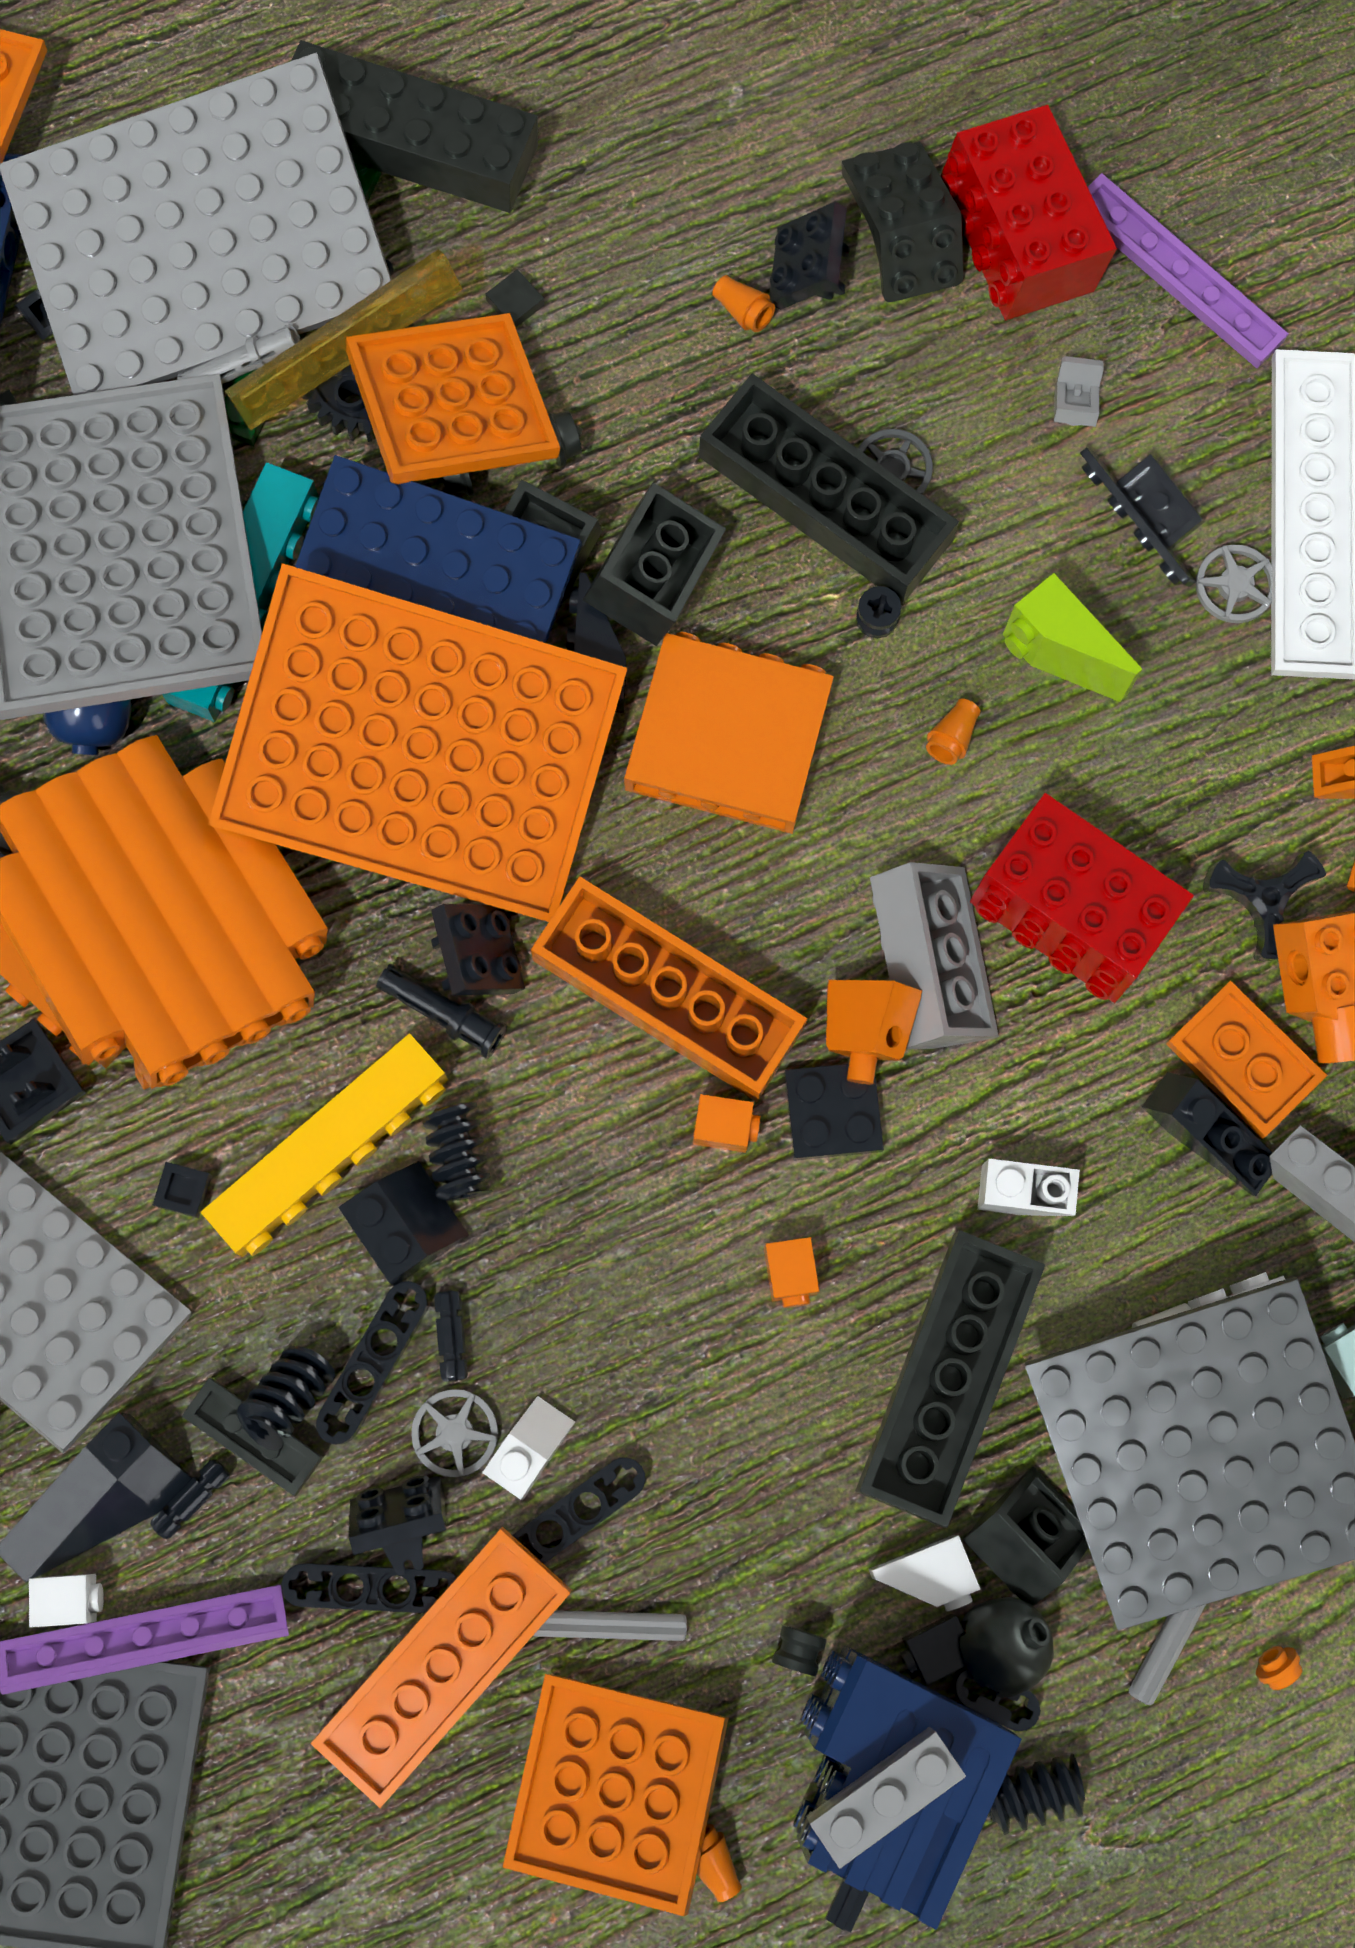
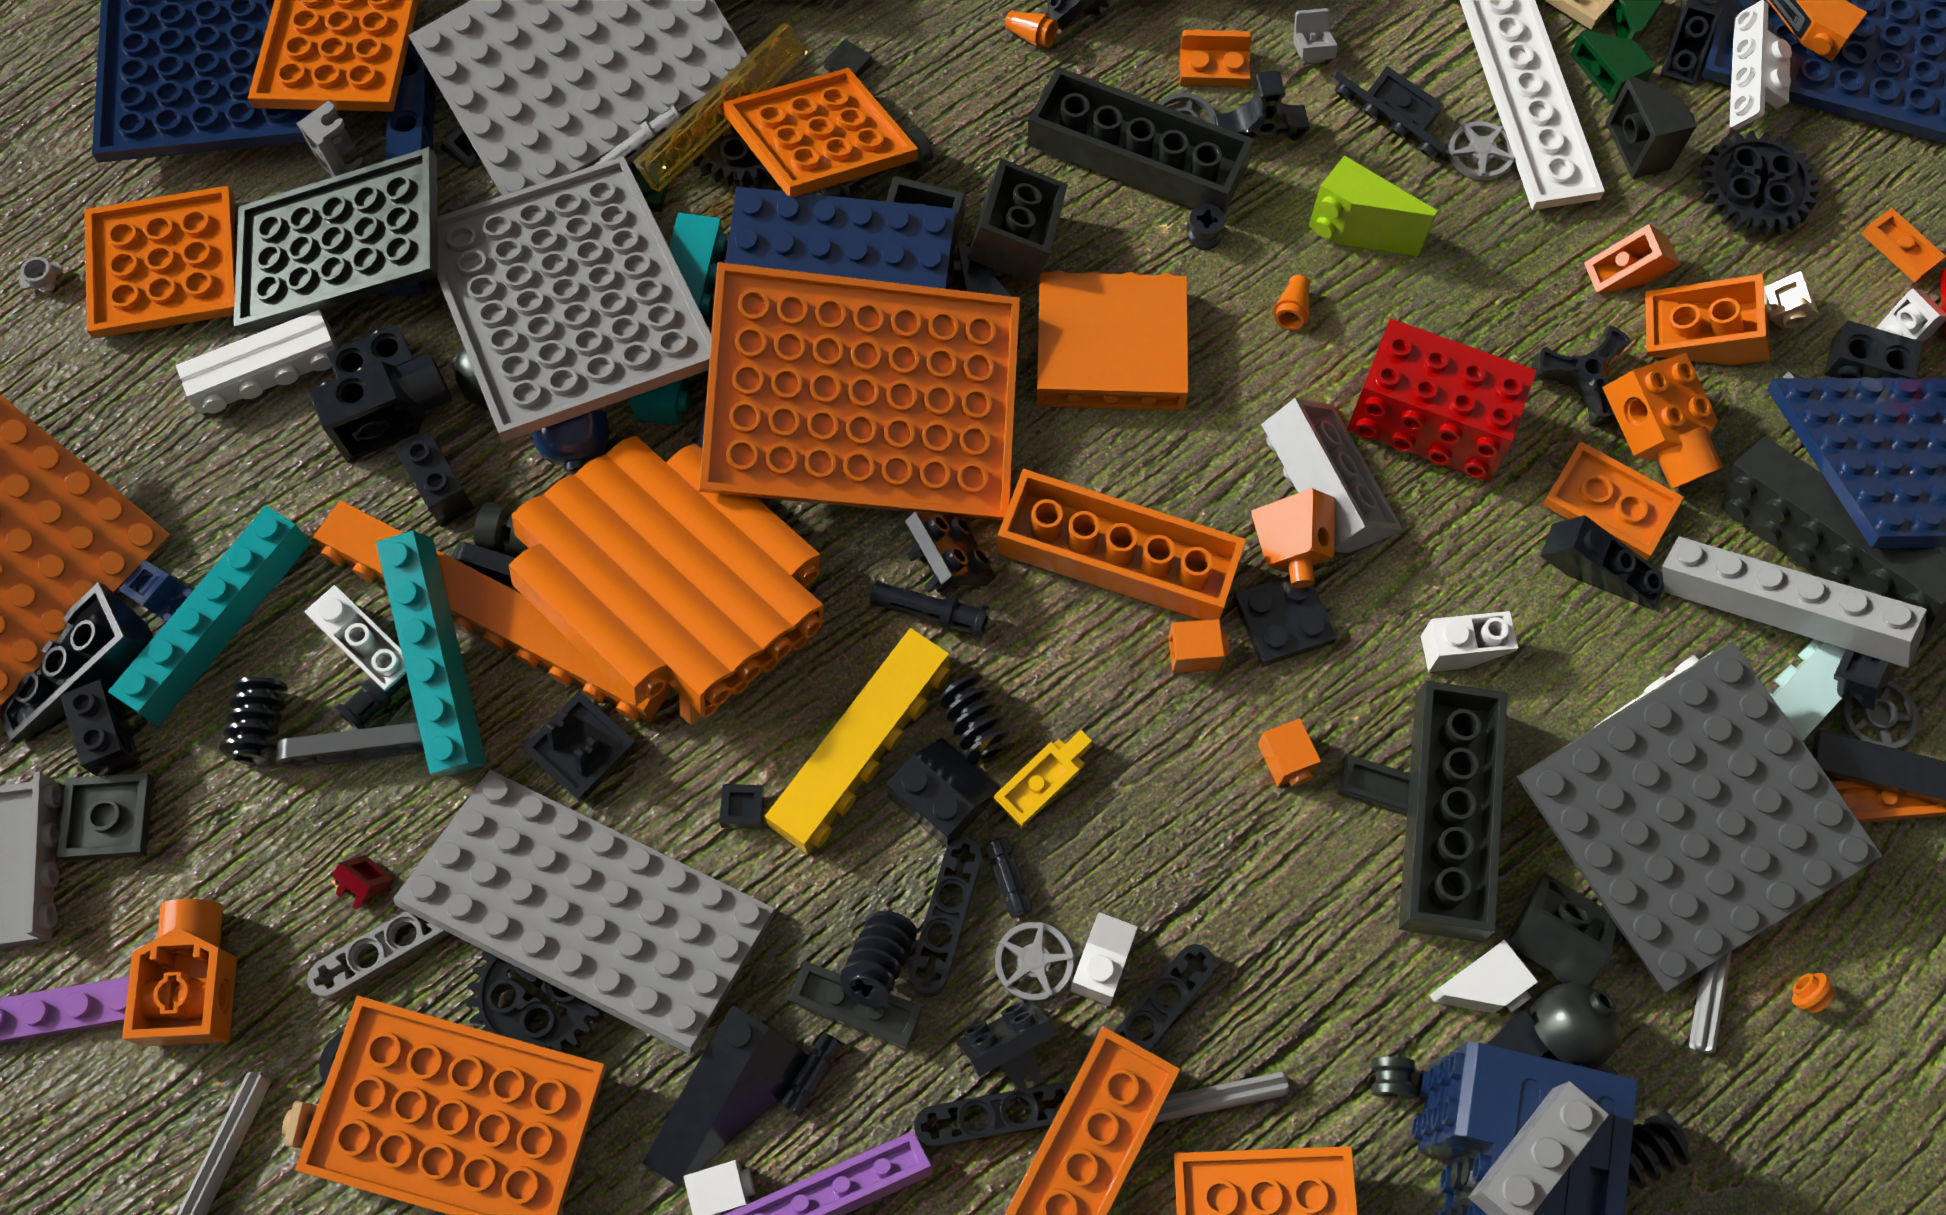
camera: 10 degrees left, 10 degrees down
(515, 1235) = (1042, 778): none -> yellow hinge
(878, 1324) = (1374, 784): none -> pearl dark grey tile
(951, 393) = (1215, 58): none -> orange bracket
(984, 486) = (1266, 112): none -> black piece

